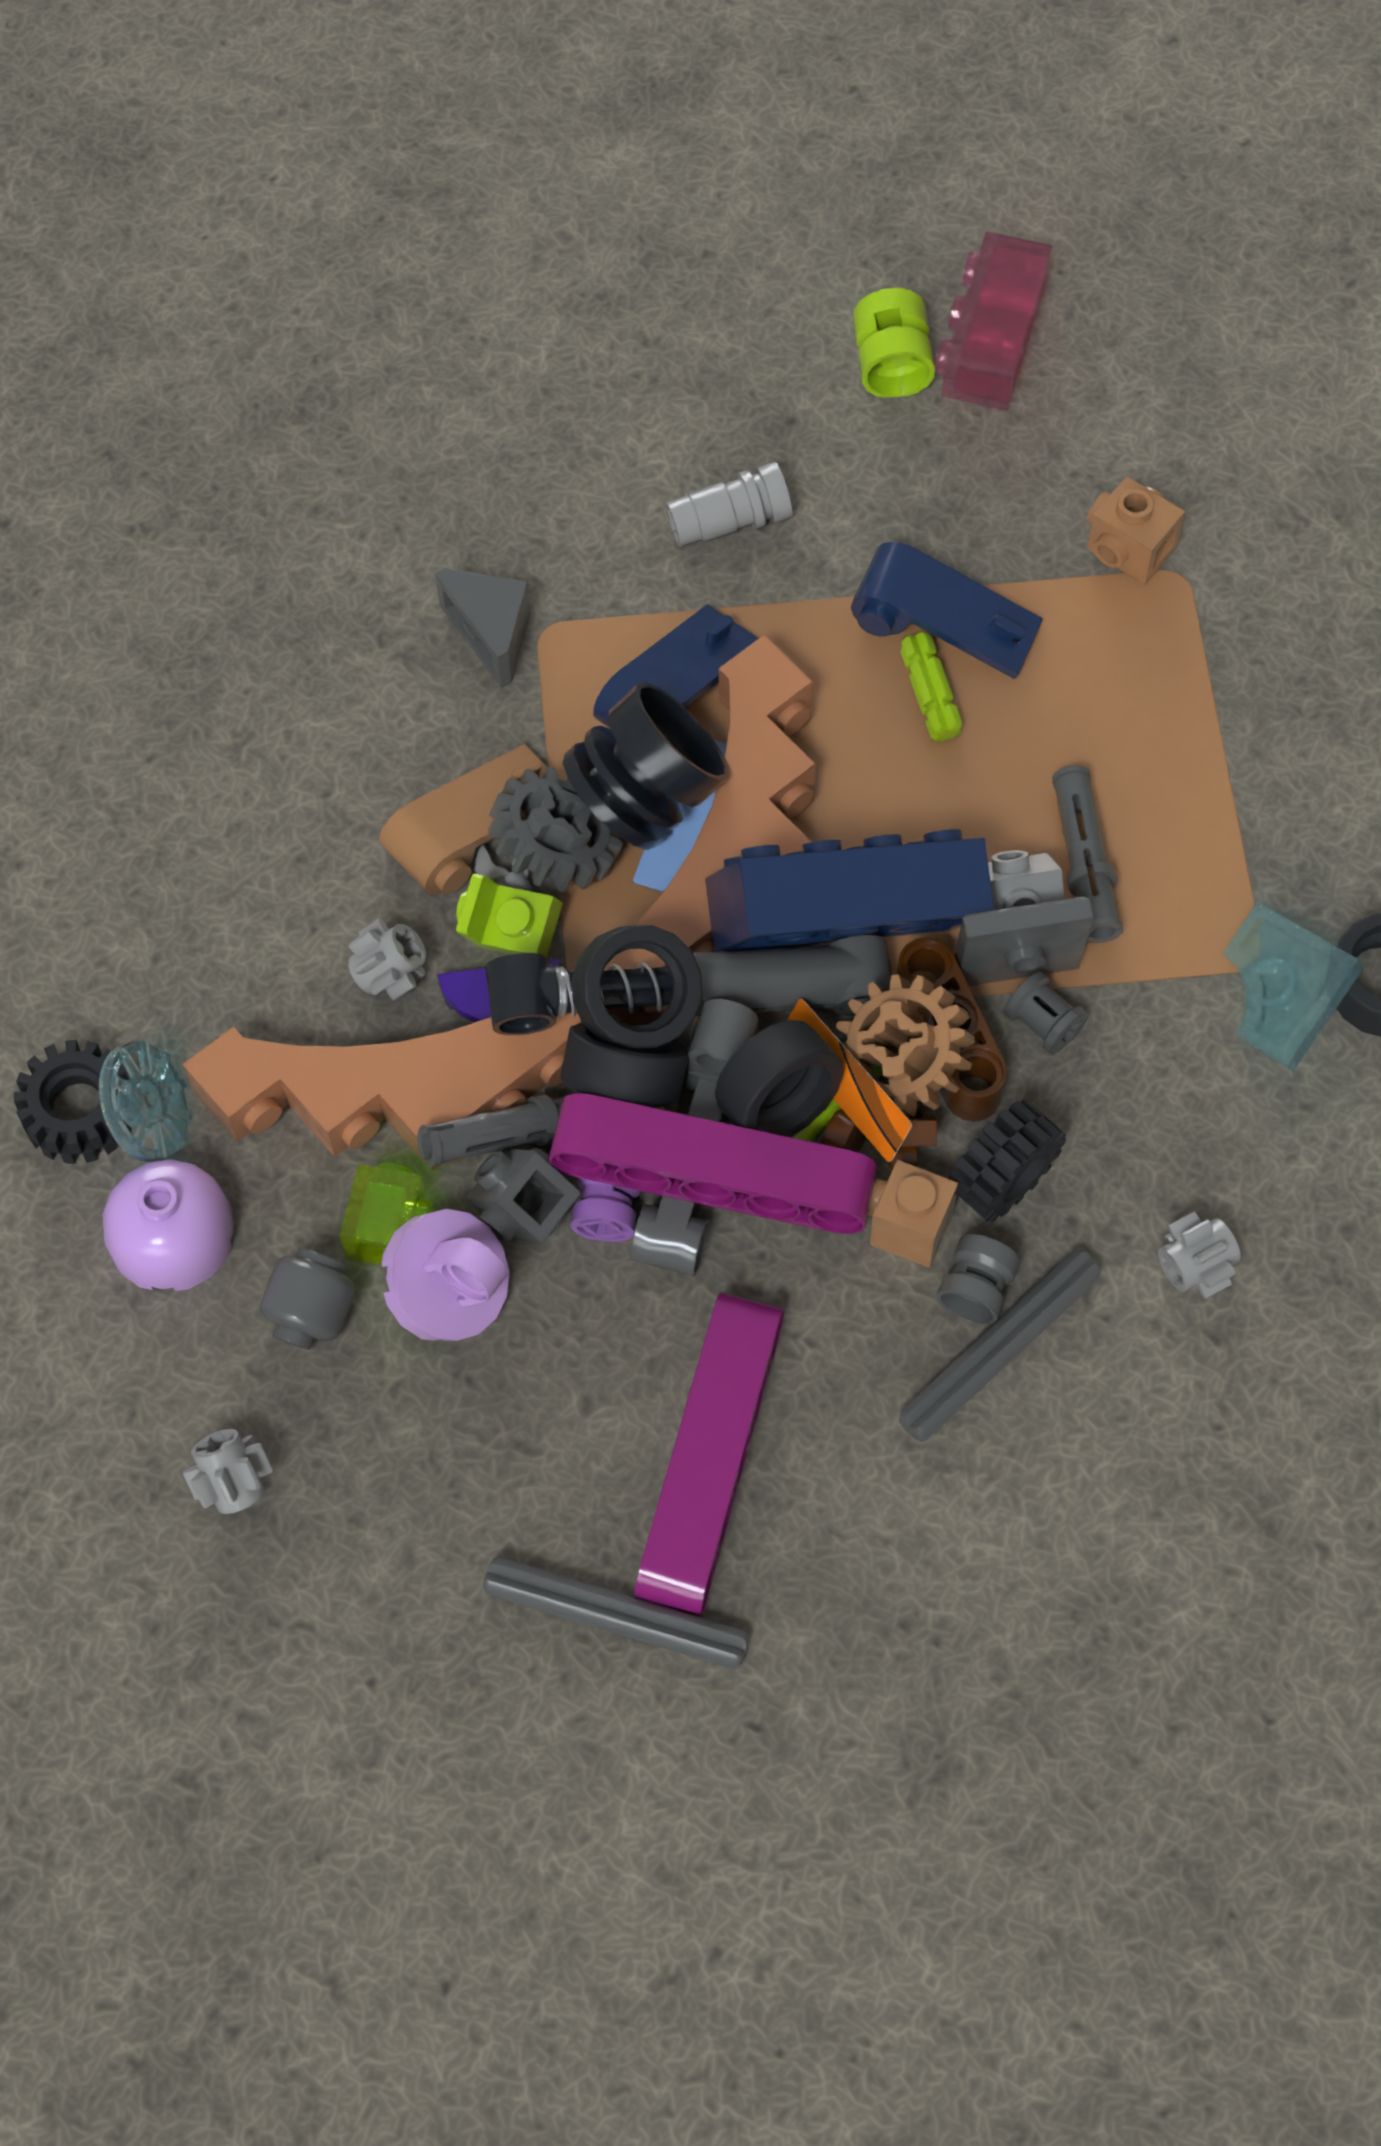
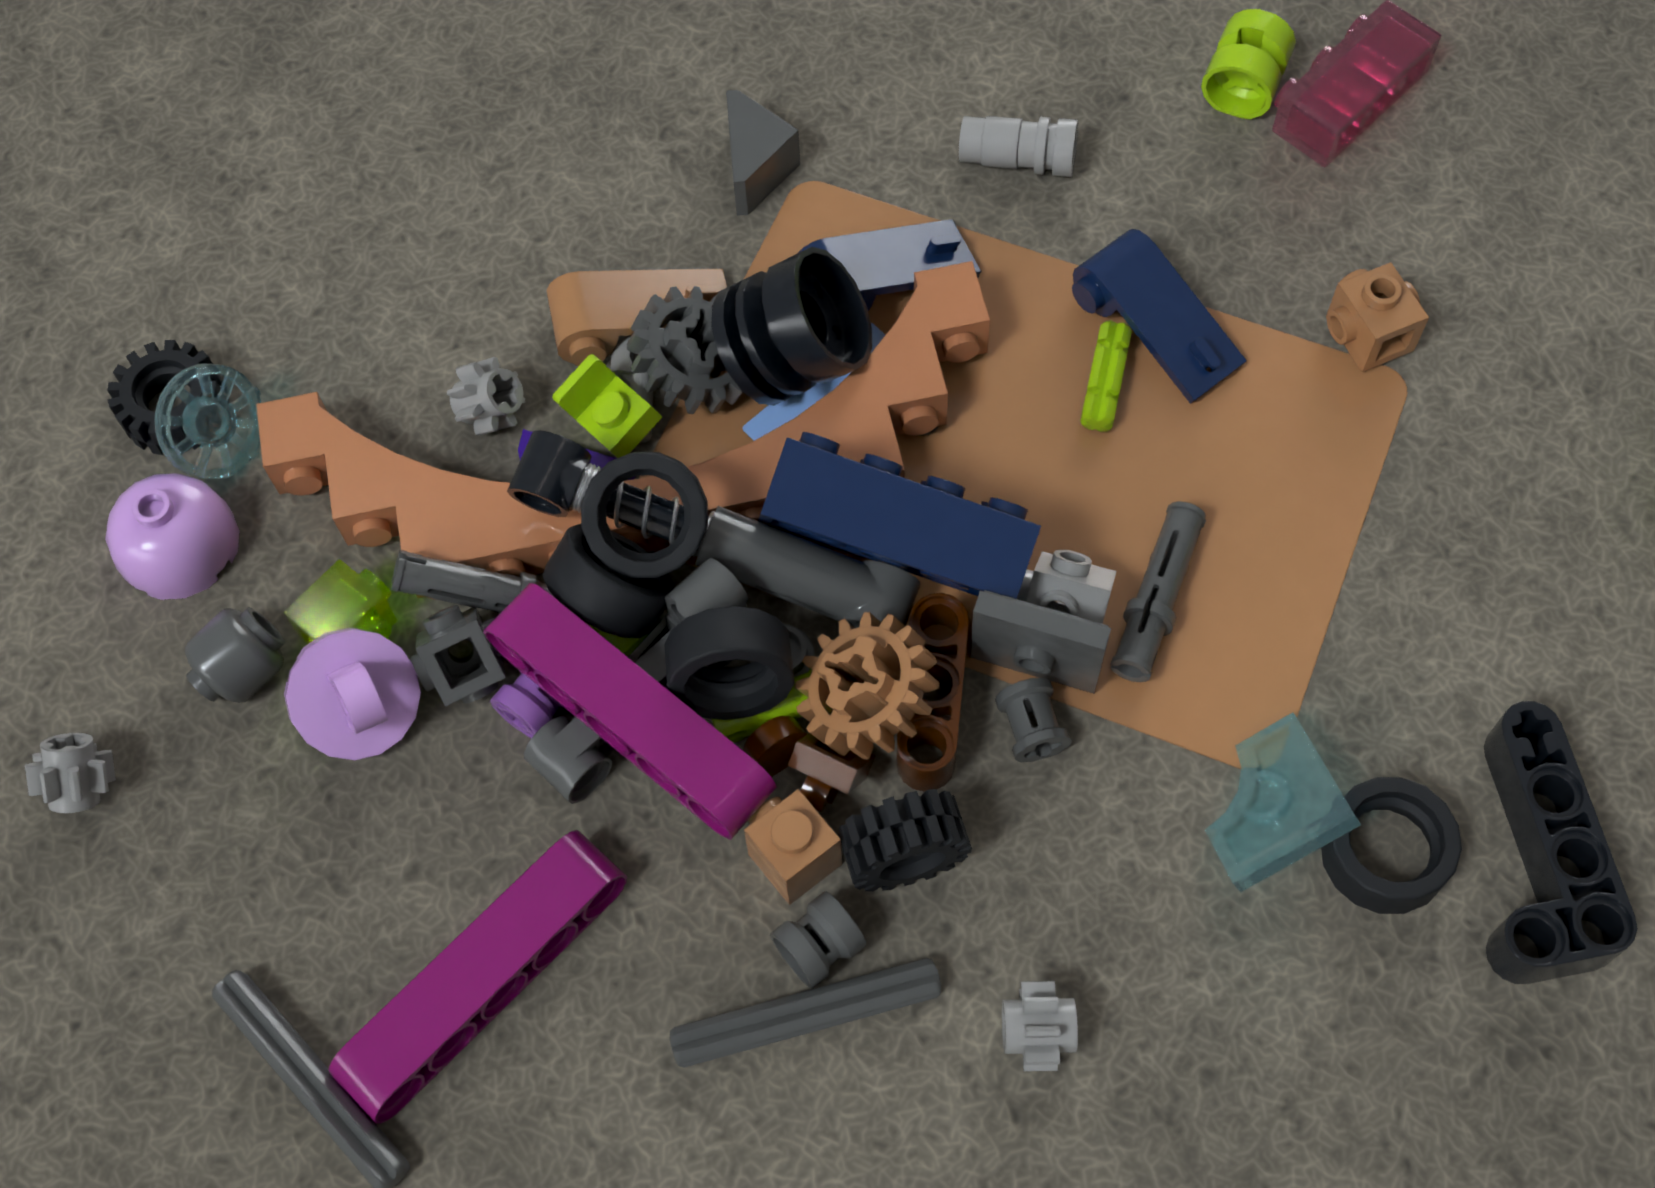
camera: 30 degrees right, 0 degrees up
(859, 1093) = (799, 706): orange sticker -> none

